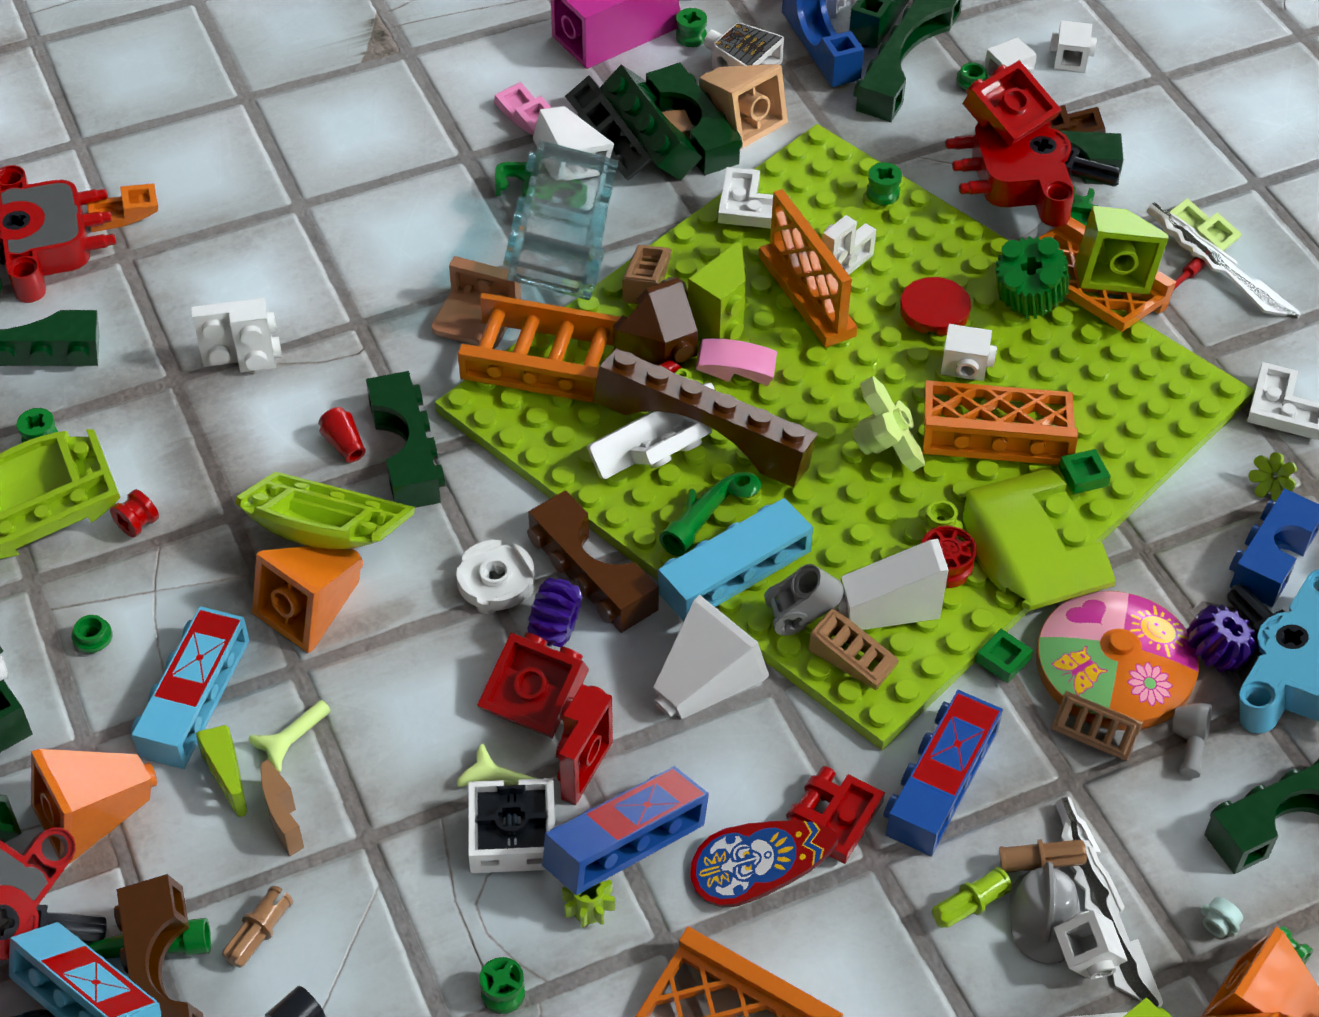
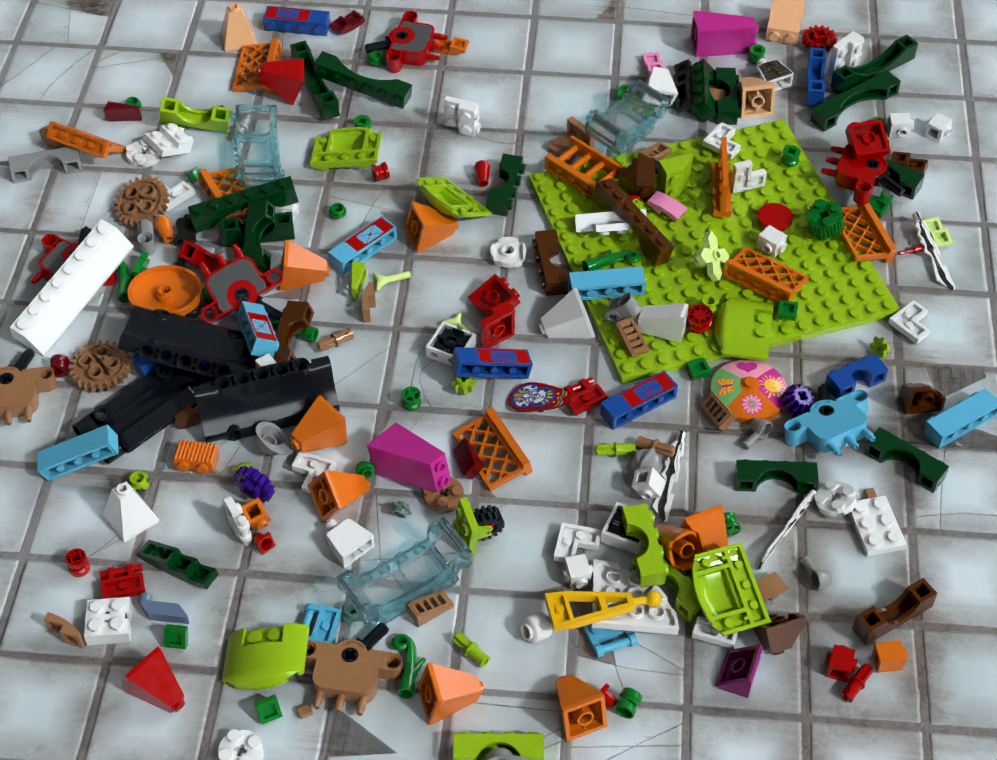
camera: 30 degrees right, 0 degrees up
(555, 611) = (520, 274): dark purple gear -> none
(1119, 251) = (872, 224): lime slope -> none
(1221, 918) = (713, 500): light aqua plate -> none

